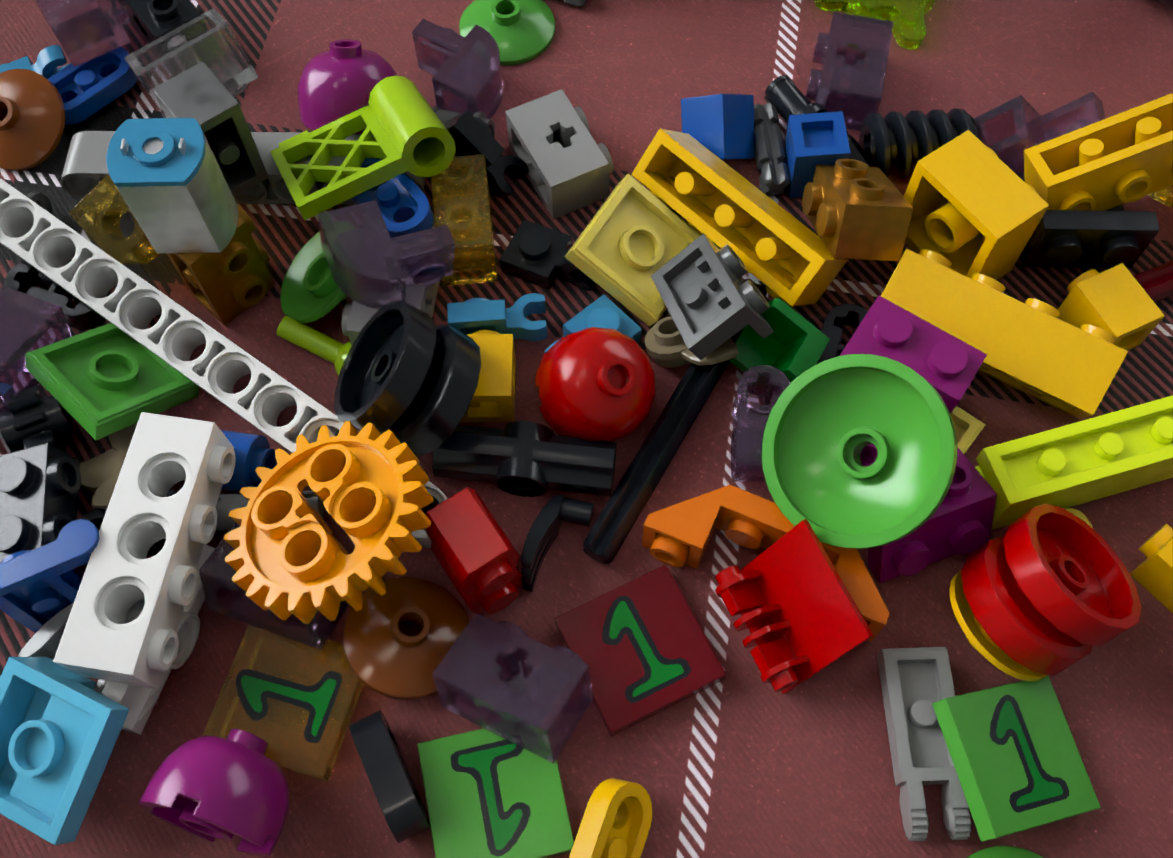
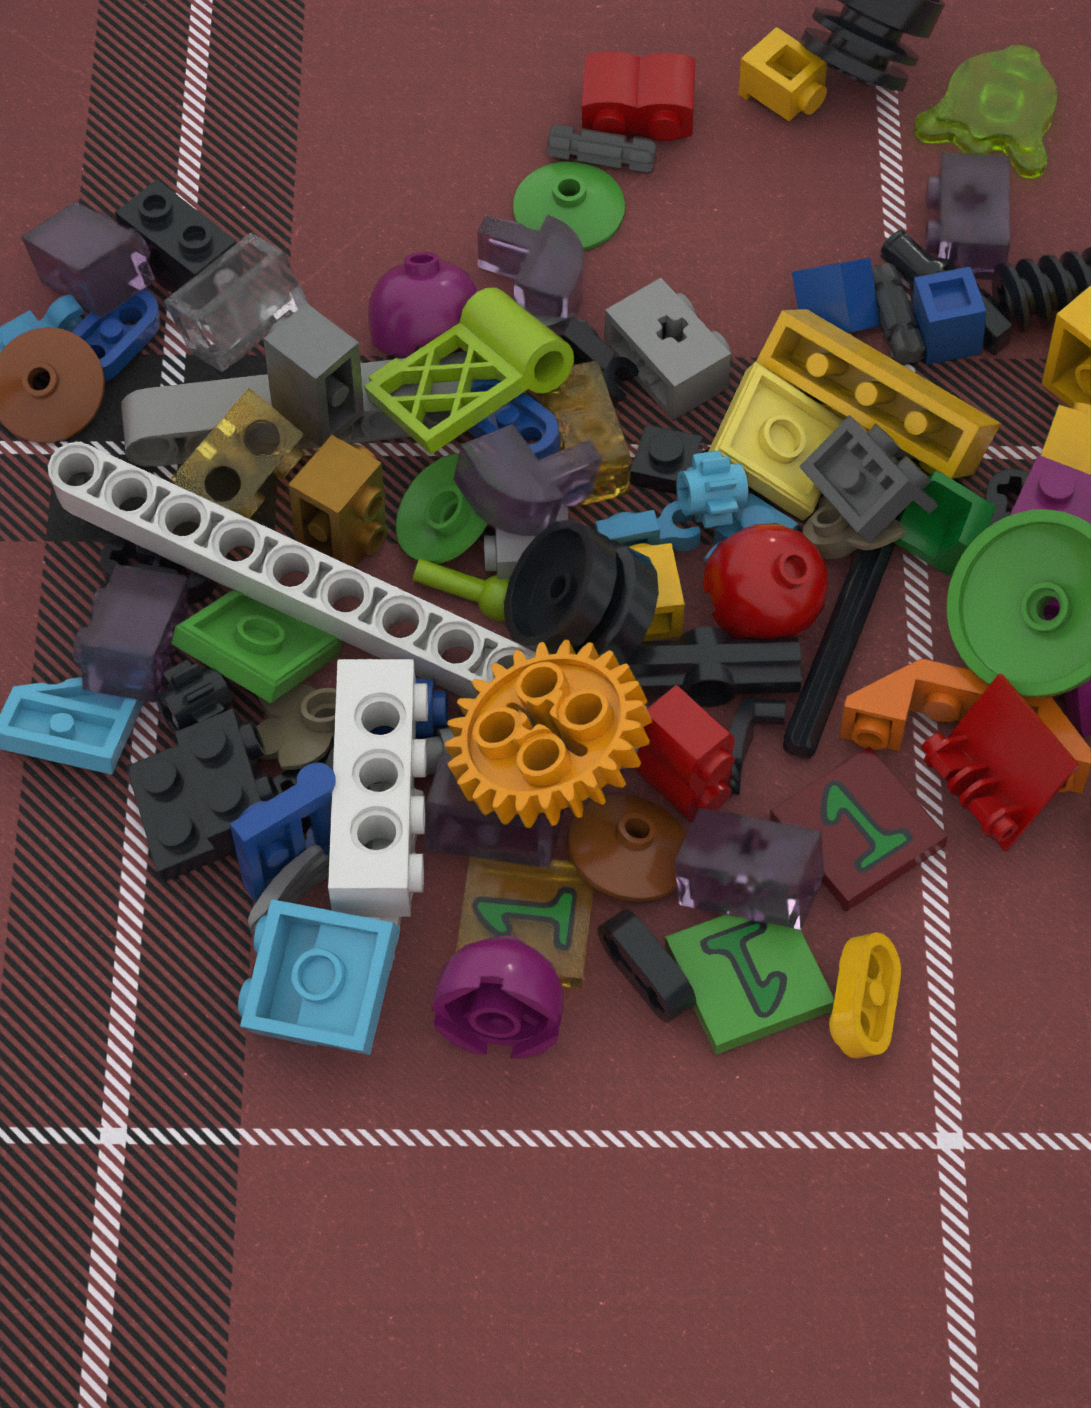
camera: 10 degrees left, 5 degrees down
(172, 184) = (324, 435): piece -> none
(563, 287) = (712, 489): none -> medium azure gear
(750, 420) = (927, 599): clear purple piece -> none
(857, 211) = (1002, 371): pearl gold brick -> none

